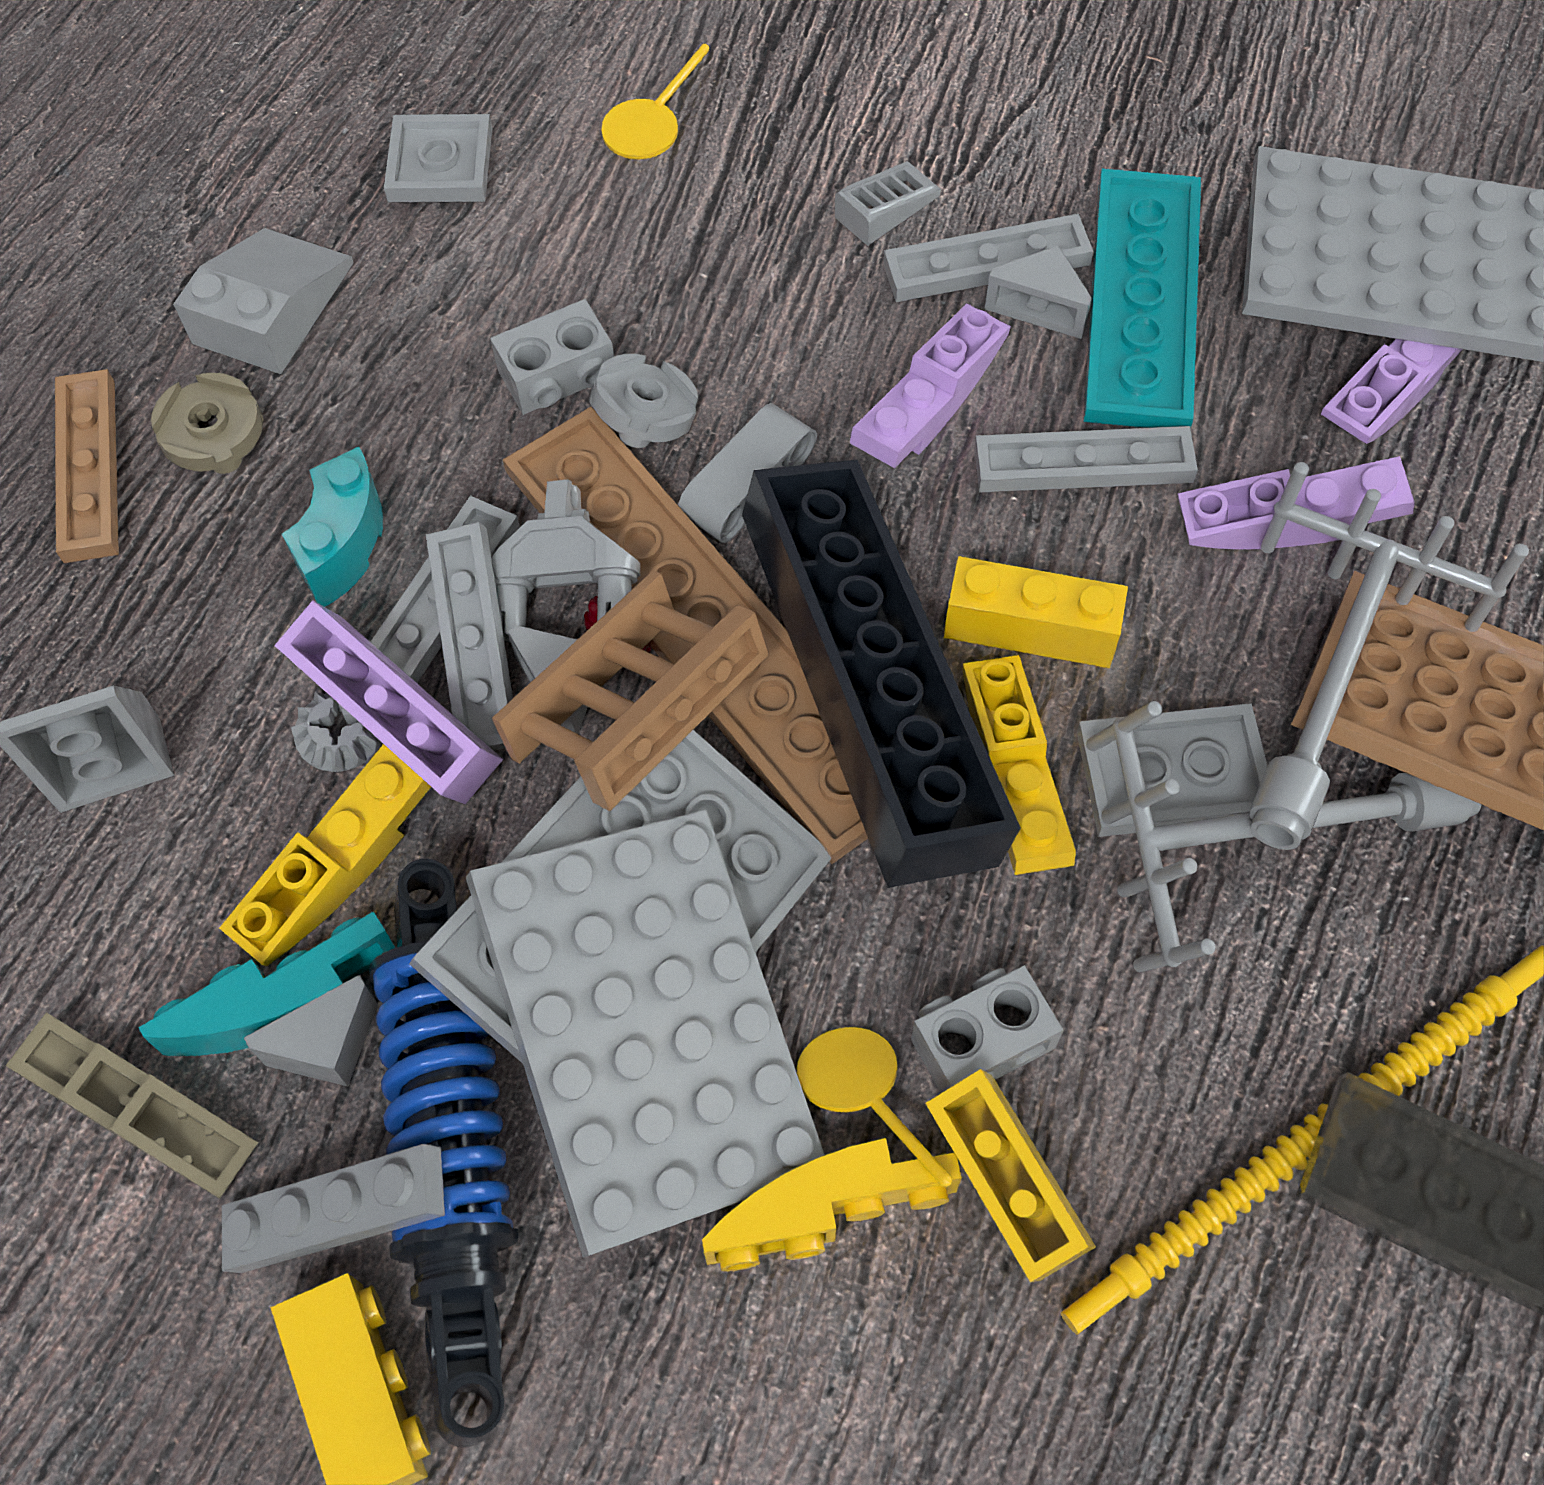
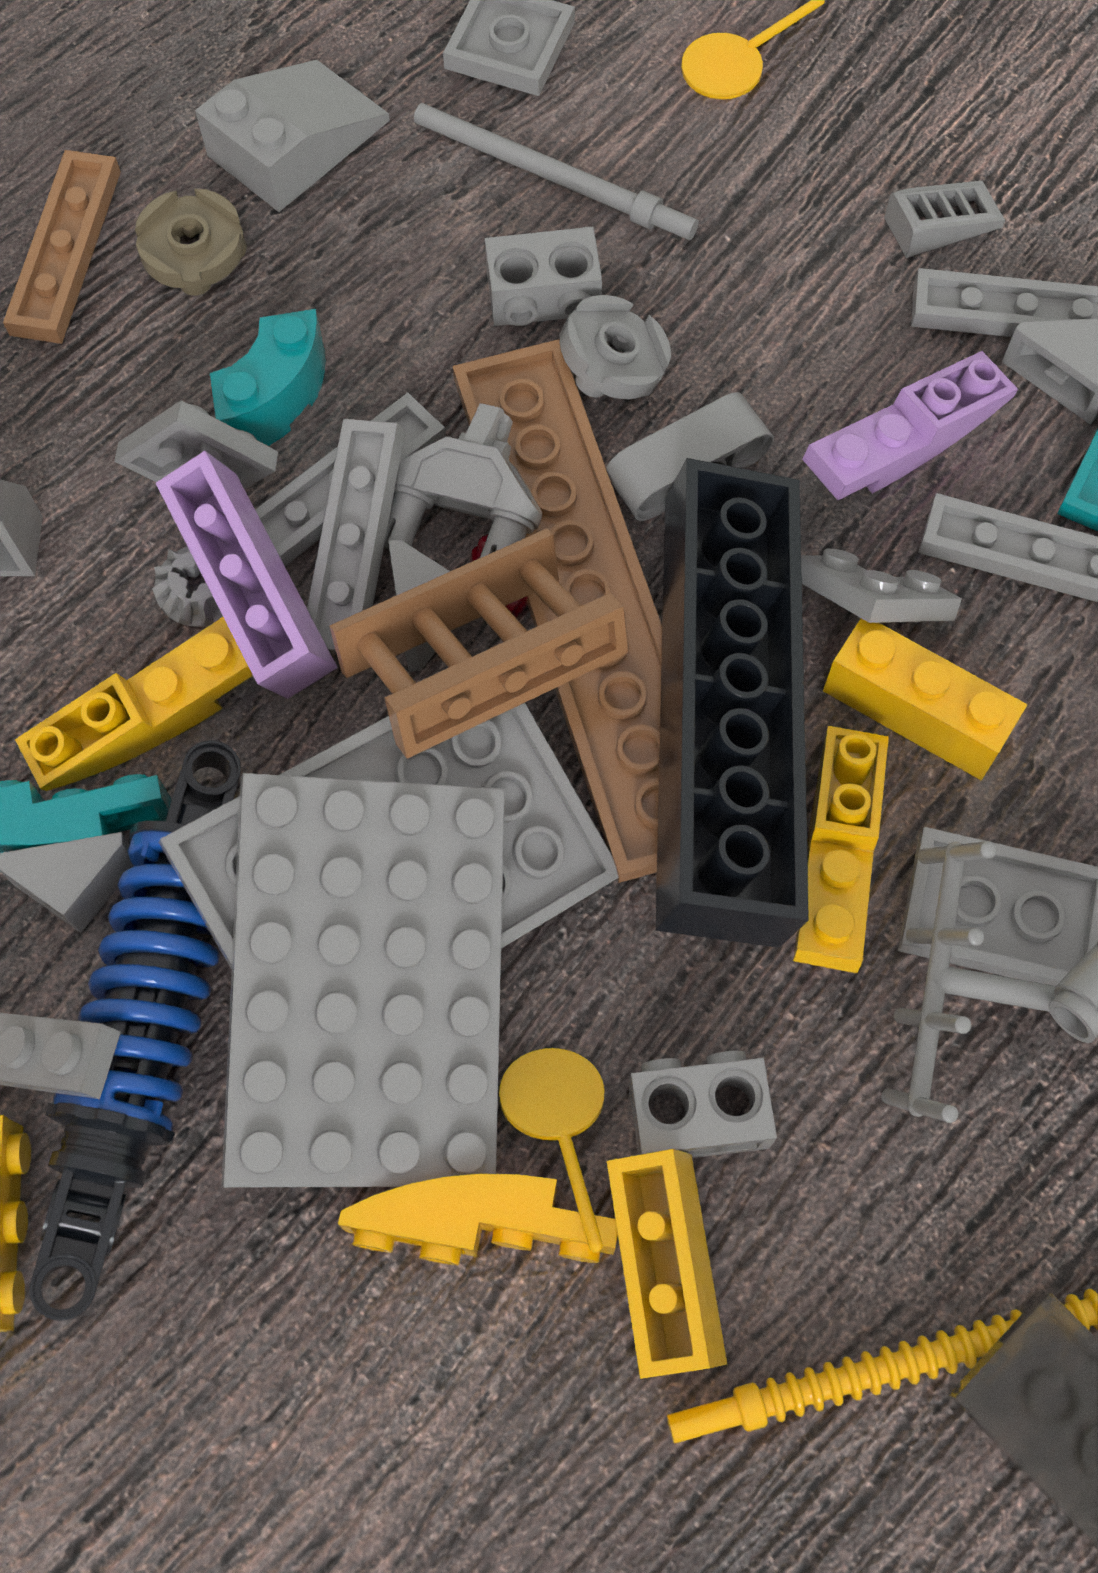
camera: 20 degrees right, 5 degrees up
(279, 598) = (186, 432): none -> light grey plate
(620, 271) = (643, 208): none -> light grey bar
(961, 535) = (876, 594): none -> light grey plate

